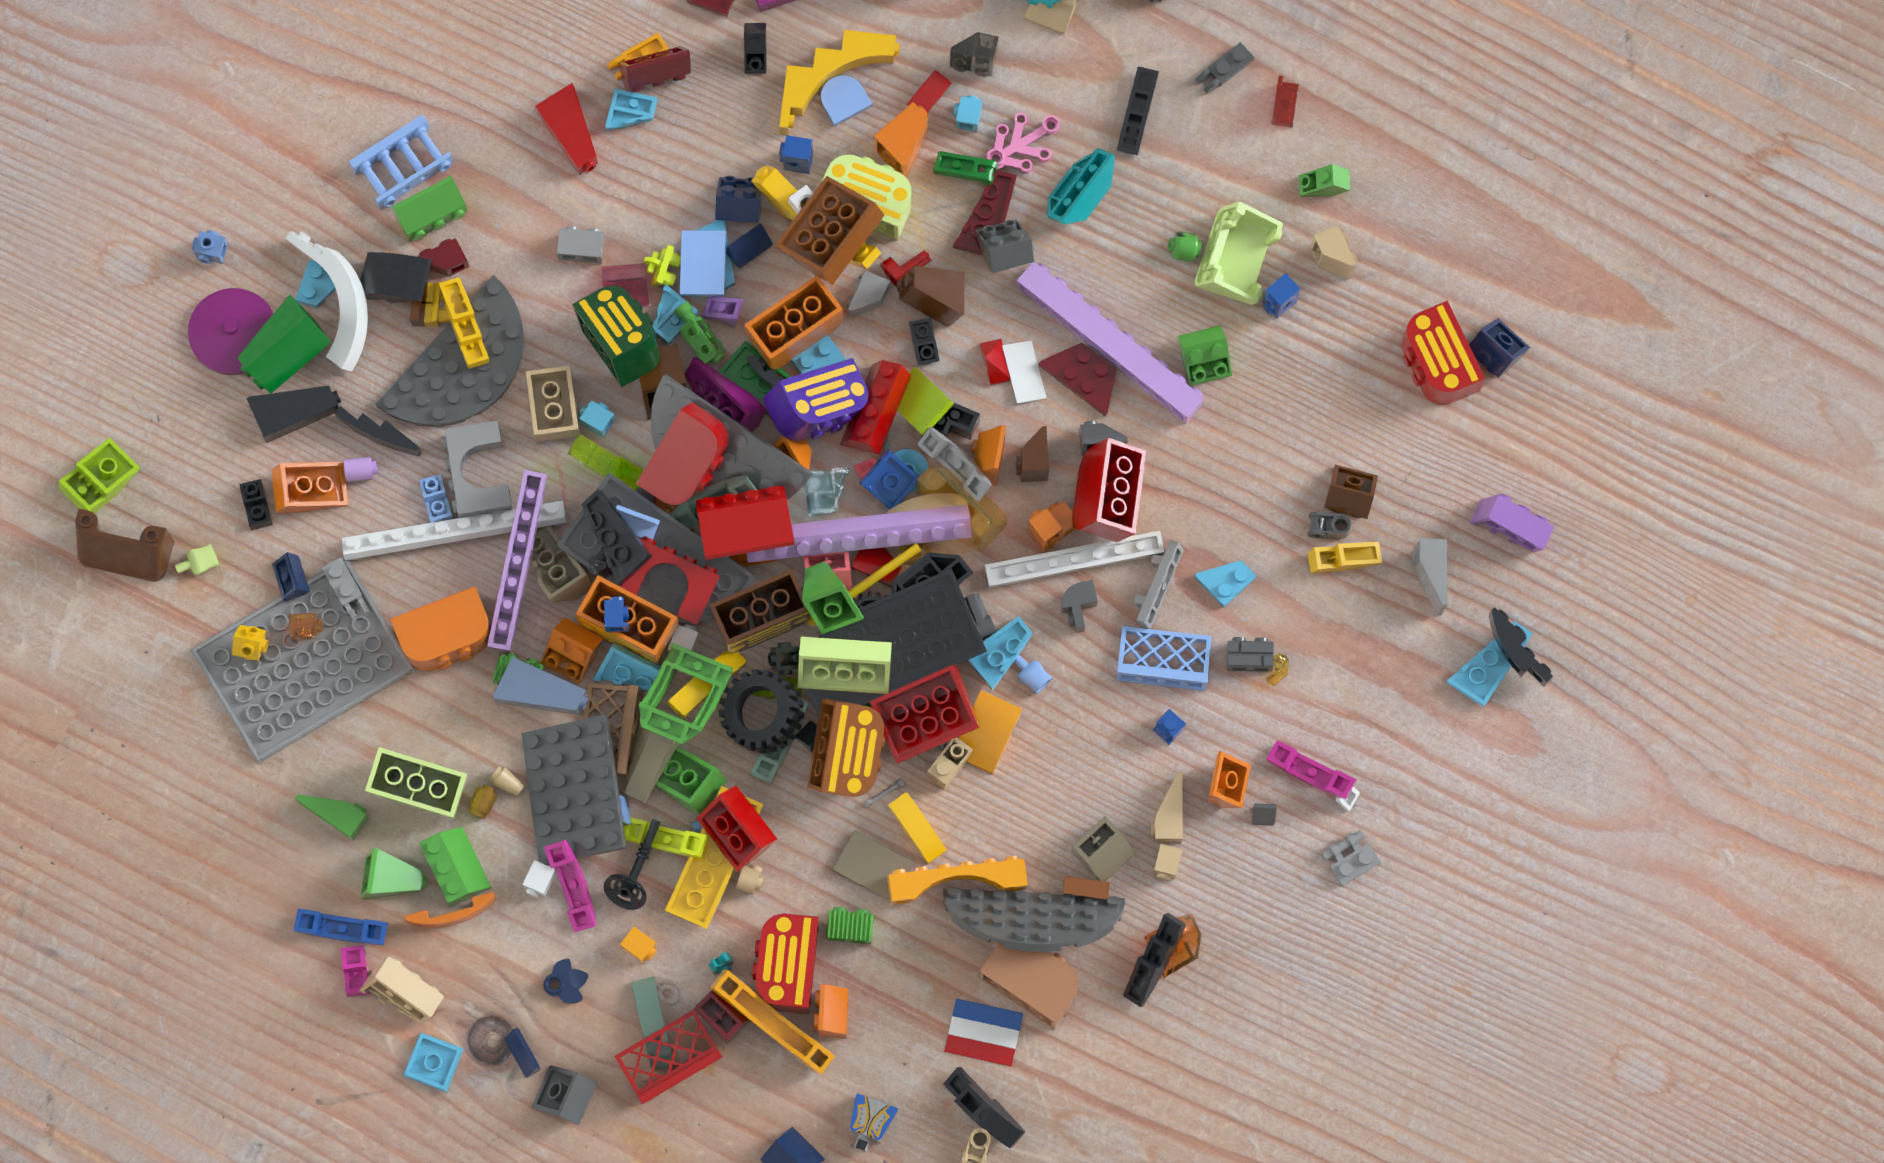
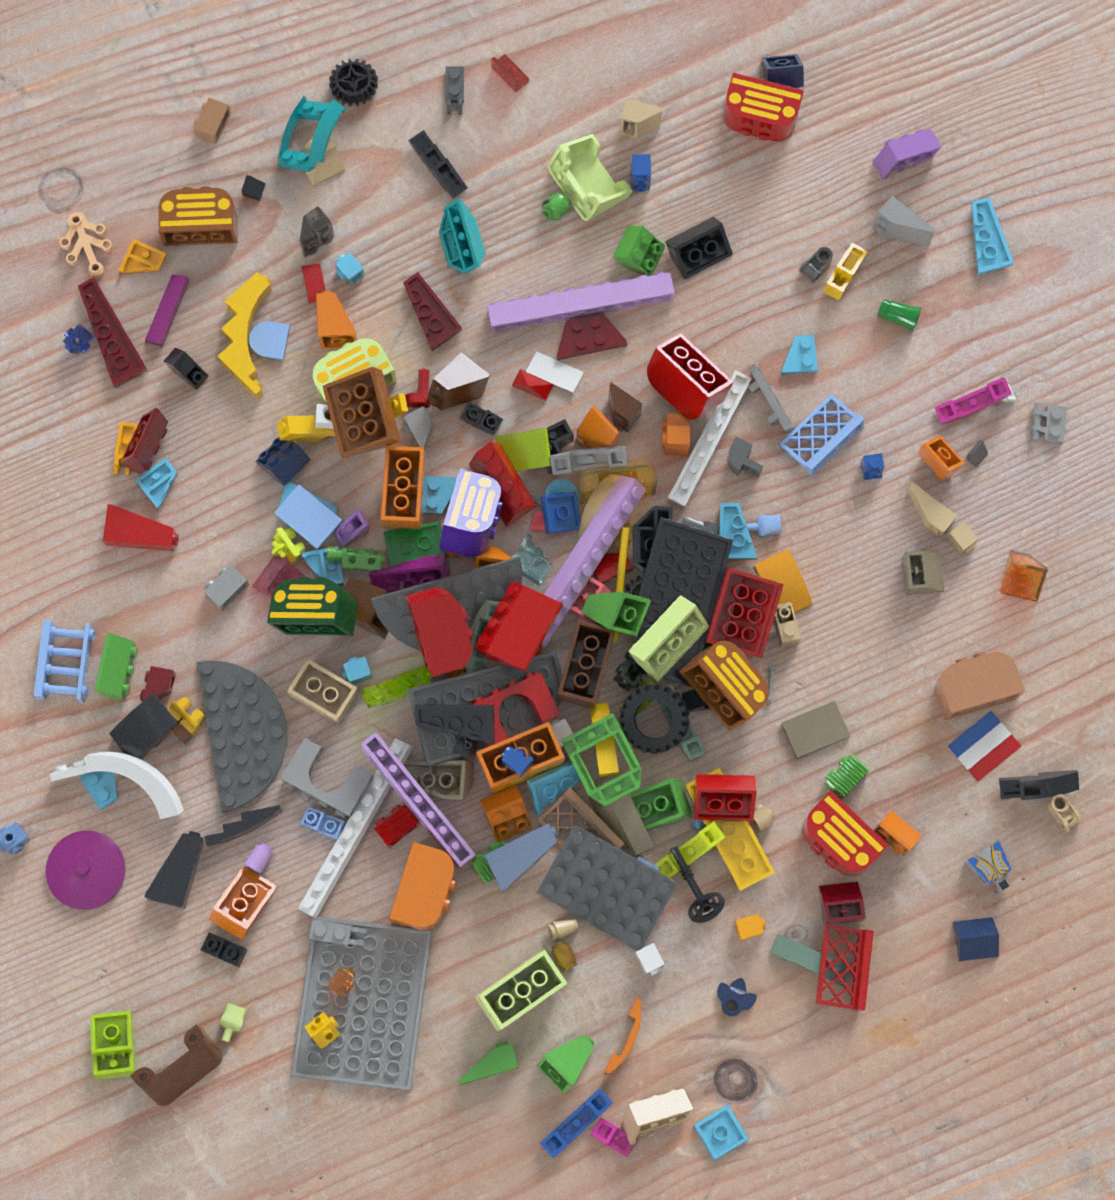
camera: 50 degrees left, 0 degrees up
(282, 346) = (128, 842): green slope -> none
(290, 576) = (296, 965): dark blue slope -> none
(455, 865) = (594, 1010): bright green slope -> none
(463, 322) = (215, 706): yellow slope -> none
(482, 563) = (396, 825): none -> red brick
(522, 1053) = (762, 1065): dark blue slope -> none
(564, 1094) = (814, 1059): dark grey slope -> none
(573, 885) = (673, 939): dark pink slope -> none
(640, 524) = (462, 695): light blue panel -> none
(721, 963) = (807, 882): teal plate -> none
(749, 246) = (321, 478): dark blue slope -> none
(758, 367) = (427, 535): black slope -> none
(772, 1022) = (877, 878): light orange arch -> none
(796, 154) = (285, 397): blue brick -> none
(917, 827) = (812, 680): yellow slope -> none
(965, 167) = (385, 299): green plate -> none
(1003, 875) = (852, 714): light orange arch -> none
(1005, 245) = (462, 314): dark grey slope -> none
(1019, 144) = (397, 254): bright pink plant -> none
(1032, 919) = (938, 653): dark grey plate -> none
(1086, 887) = (941, 603): dark orange slope -> none
(1094, 432) = (637, 361): dark grey slope -> none
(1154, 960) = (1025, 597): black slope -> none
(1250, 655) = (865, 379): dark grey brick -> none
(1254, 406) = (699, 247): none -> black slope
(1281, 669) = (888, 368): clear yellow arm -> none
(1324, 181) = (584, 88): bright green slope -> none
(1343, 640) = (900, 314): none -> green plant
(1351, 492) = (805, 233): reddish brown slope -> none
(1510, 642) = (988, 214): black slope -> none

